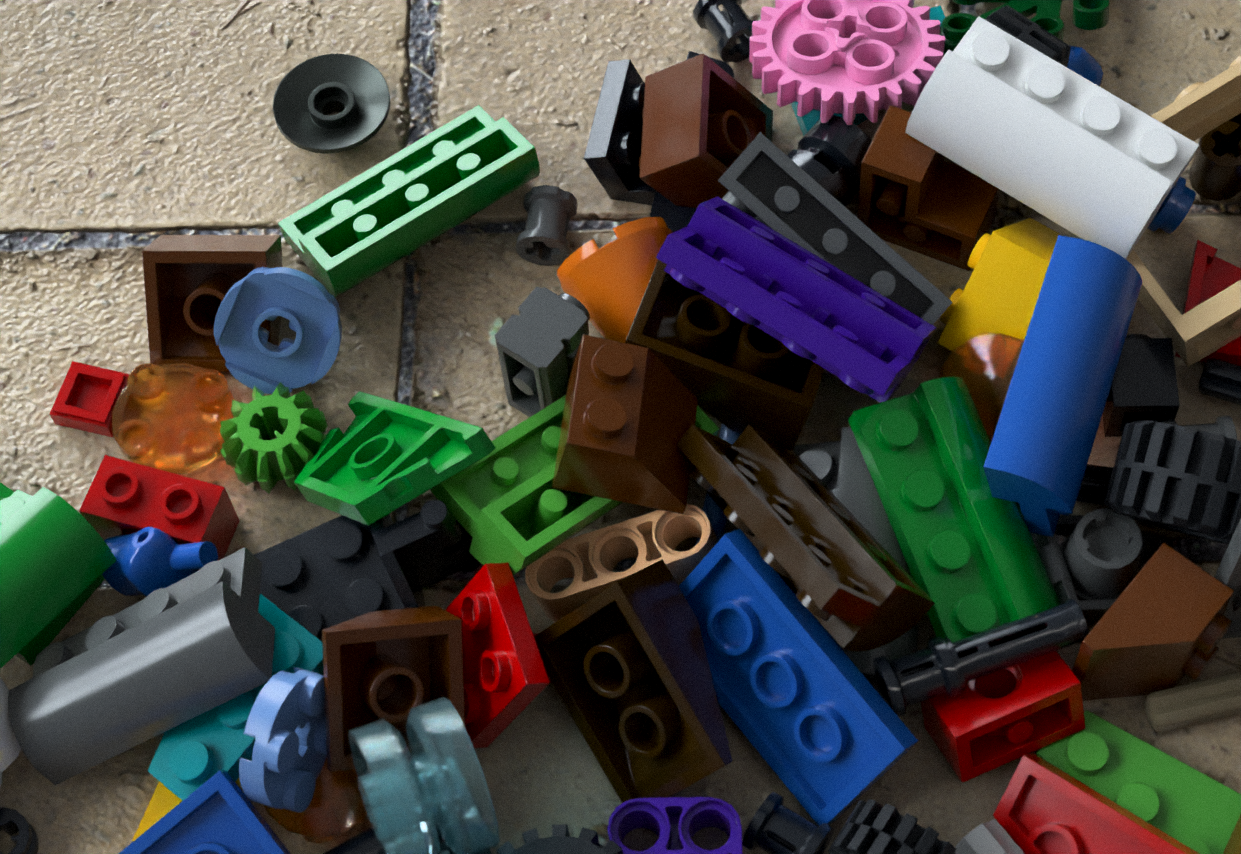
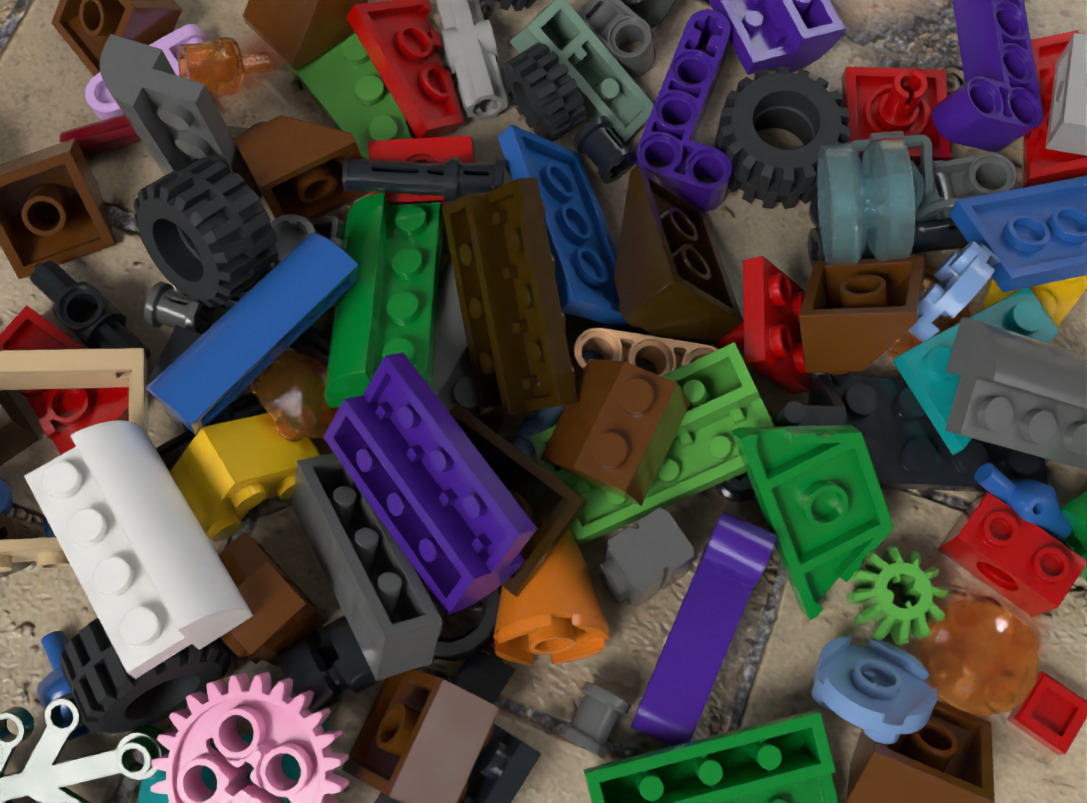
camera: 160 degrees left, 10 degrees up
(471, 303) = (703, 630): none -> dark purple beam

